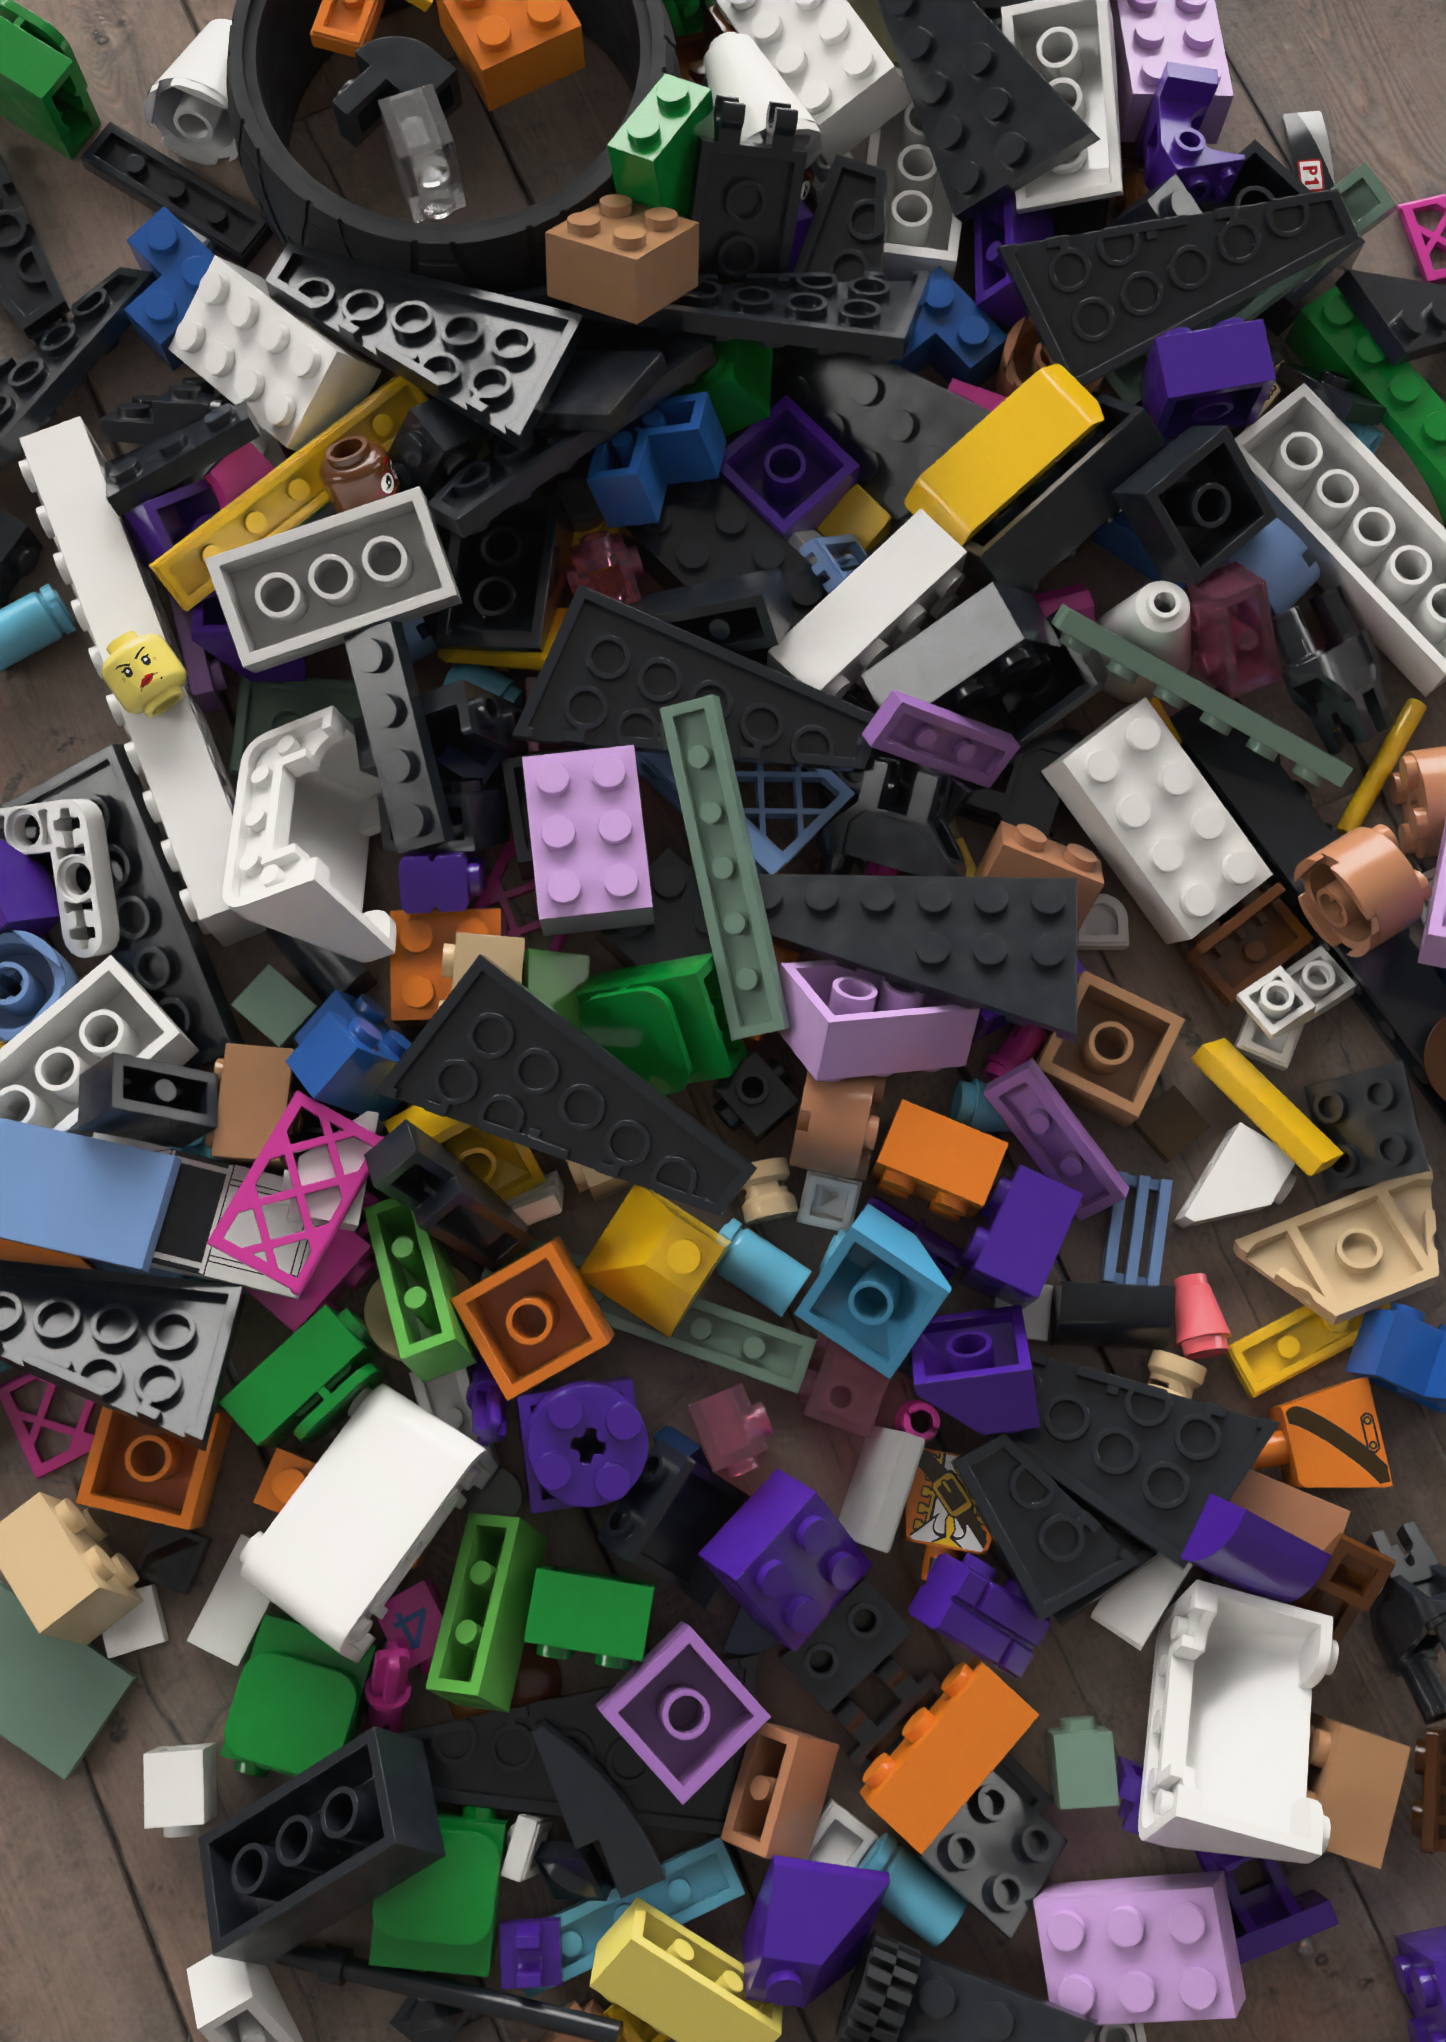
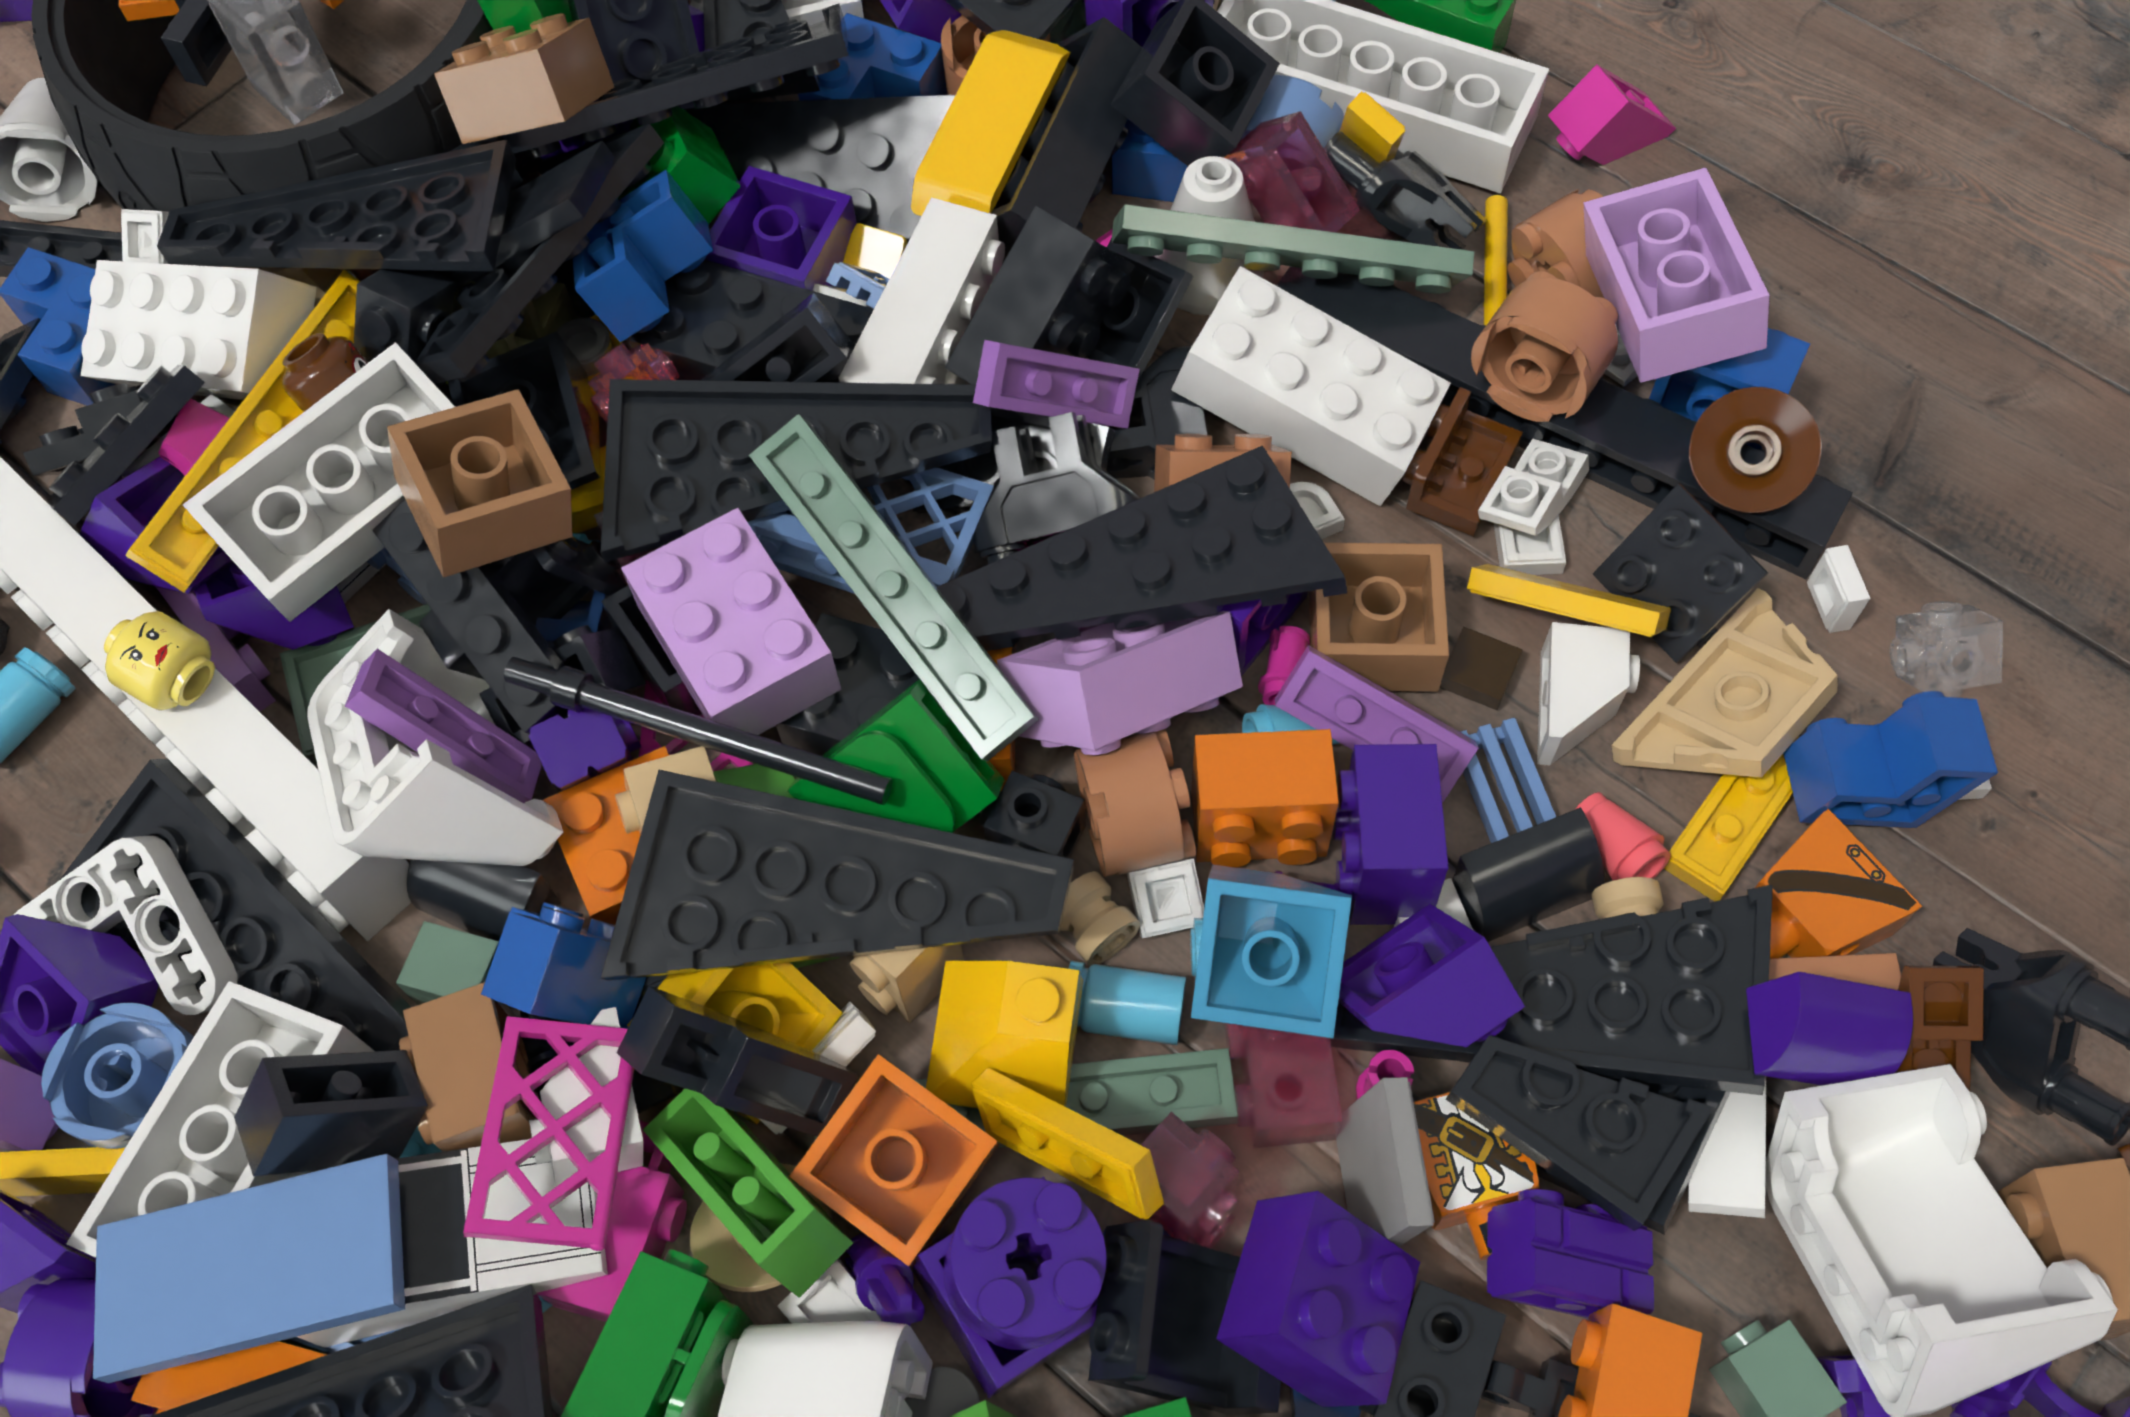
camera: 20 degrees left, 15 degrees down
(261, 247) = (141, 235): none -> white tile
(337, 826) = (417, 711): none -> medium lavender plate
(438, 649) = (481, 482): none -> medium nougat brick
(448, 850) = (577, 691): none -> black bar
(657, 1368) = (1068, 1144): none -> yellow tile
(1323, 618) = (1372, 128): none -> yellow tile

